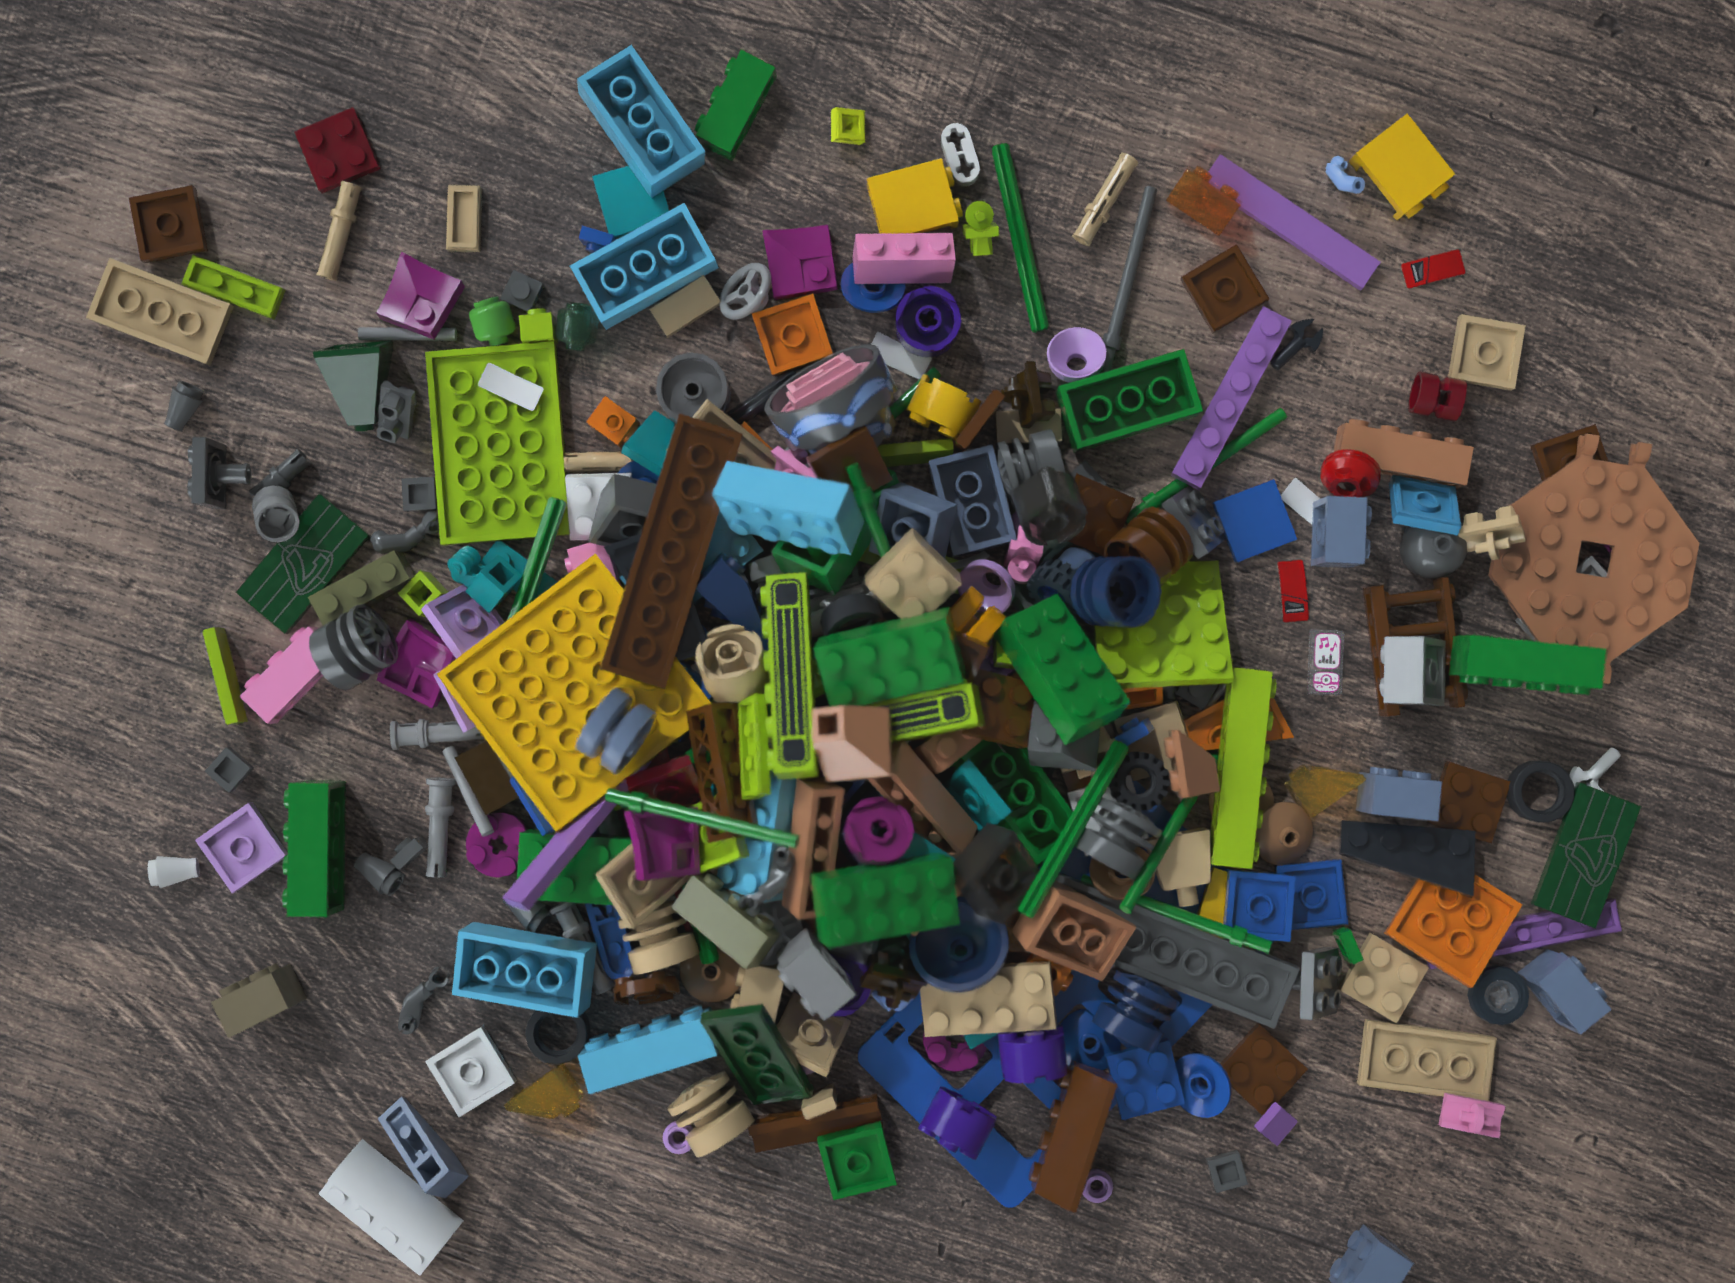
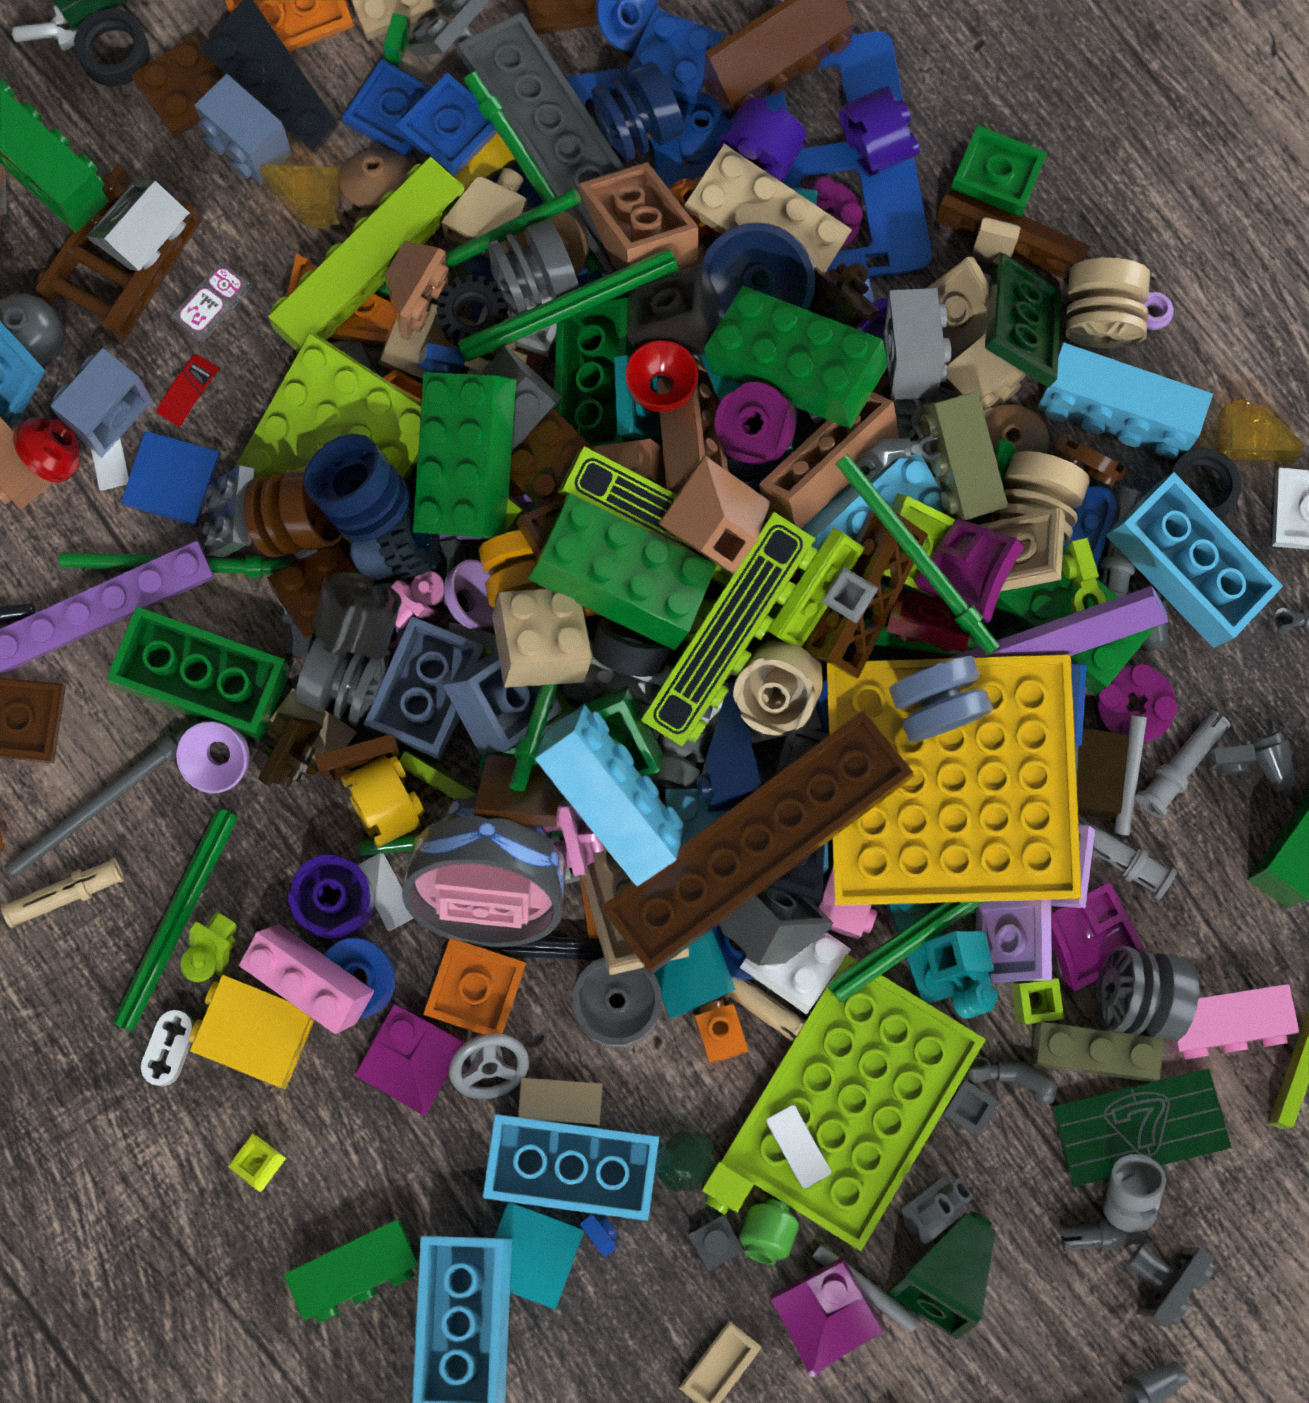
camera: 150 degrees left, 10 degrees down
(591, 897) = (1081, 568): none -> lime plate
(726, 756) = (850, 595): none -> light grey slope
(978, 834) = (667, 360): none -> red piece

